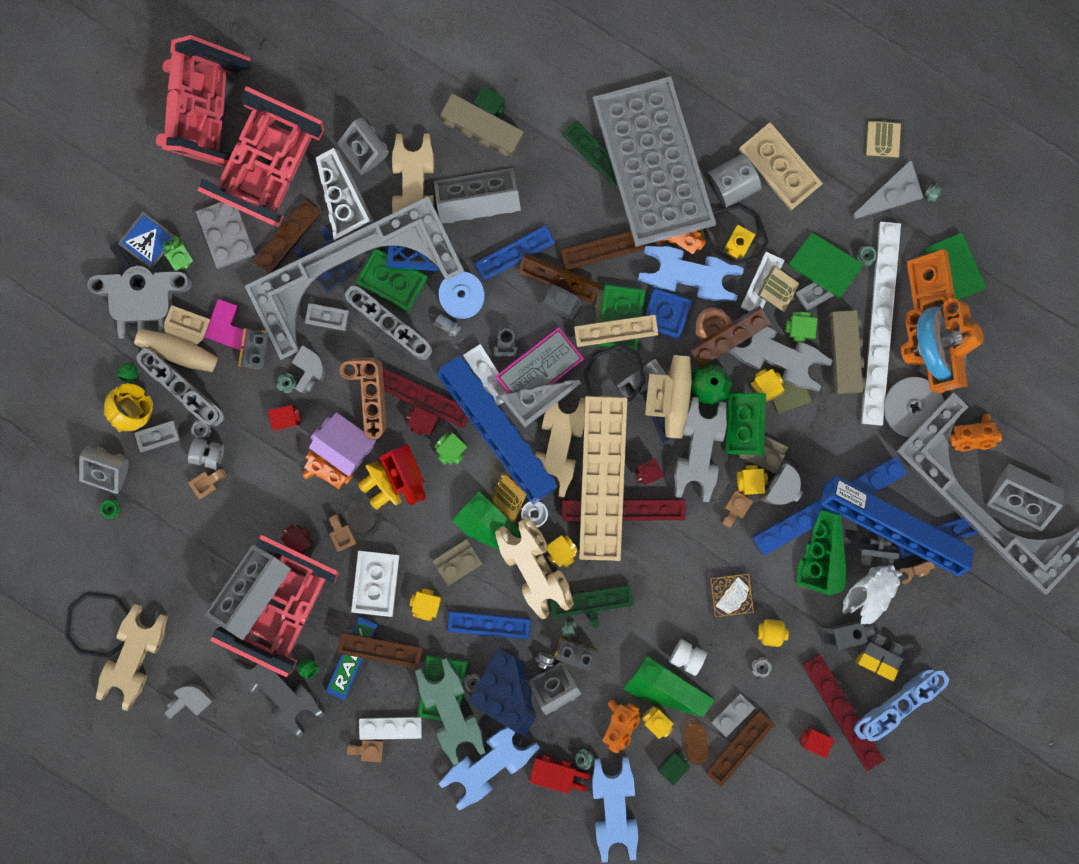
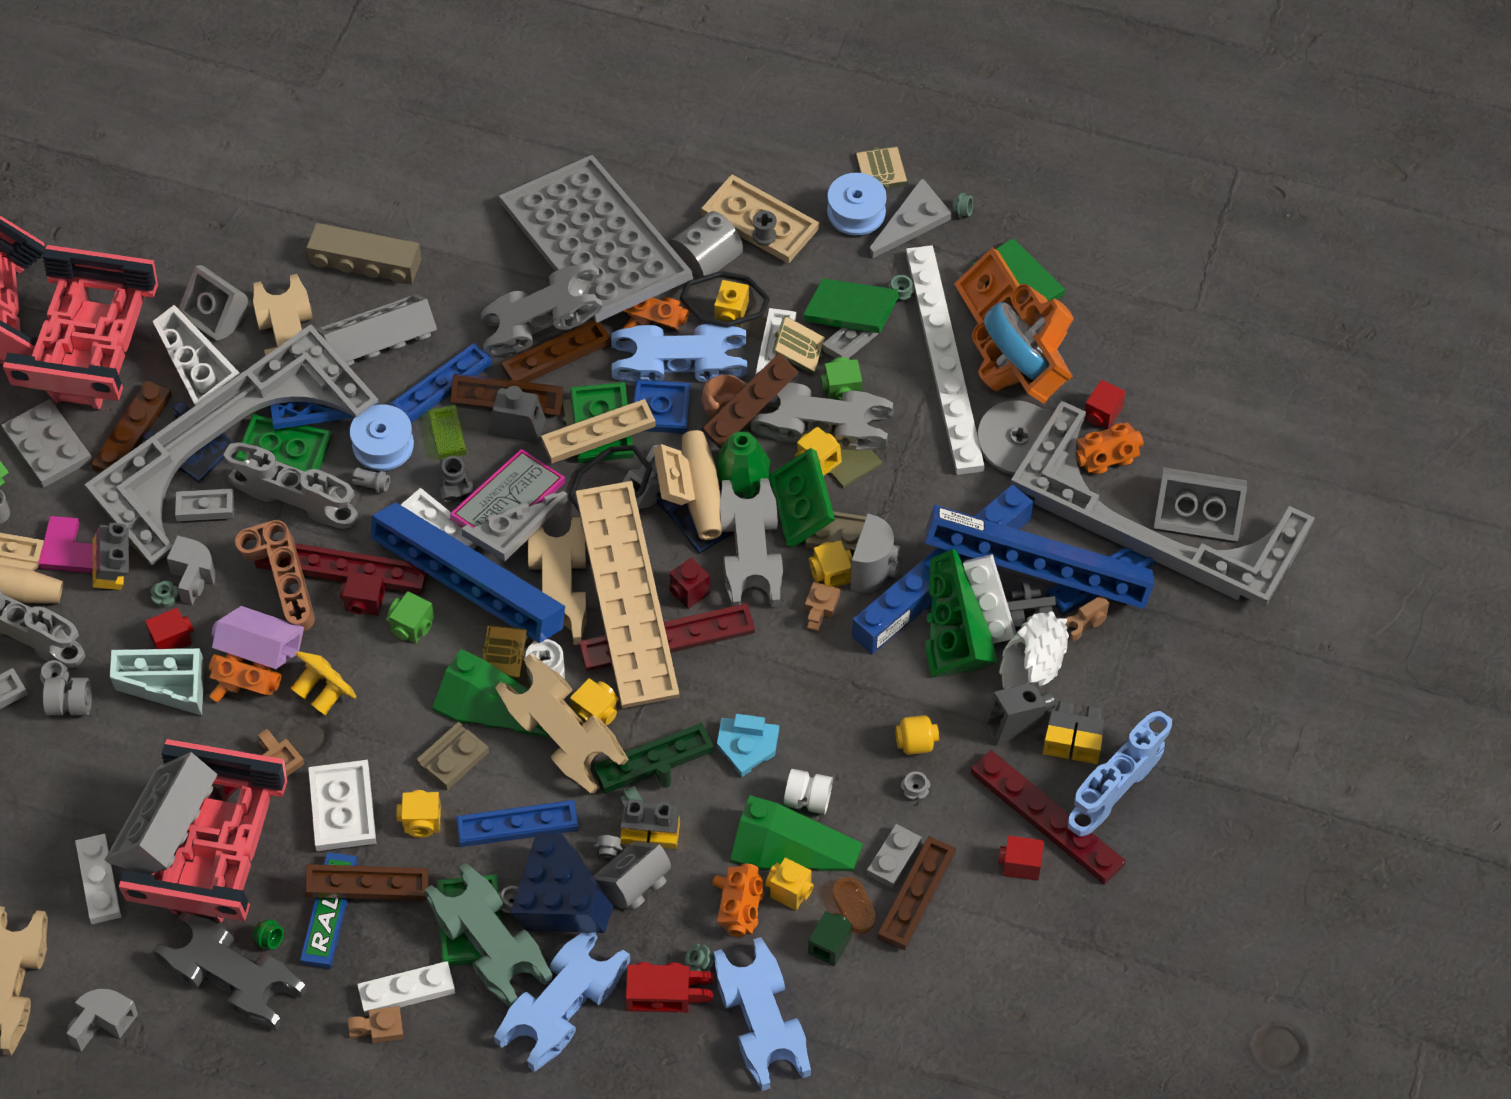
camera: 15 degrees left, 30 degrees down
(204, 592) = (98, 879): none -> white plate
(205, 483) = (73, 736): medium nougat plate -> none
(272, 455) = (161, 676): none -> light aqua wedge
(404, 474) = (351, 656): red hinge -> none
(490, 101) = (369, 222): dark green brick -> none
(509, 296) = (447, 432): none -> clear neon green tile
(591, 151) = (512, 254): dark green tile -> none
(612, 223) = (556, 305): none -> light grey piece
(657, 604) = (747, 741): none -> medium azure plate
(731, 595) = (846, 709): tile -> none
(775, 186) = (764, 225): none -> dark grey bush
(846, 352) = (909, 393): dark tan brick -> none
(854, 546) = (990, 596): none -> white plate
(855, 174) = (856, 204): none -> light blue wheel
(983, 397) = (1104, 404): none -> red brick

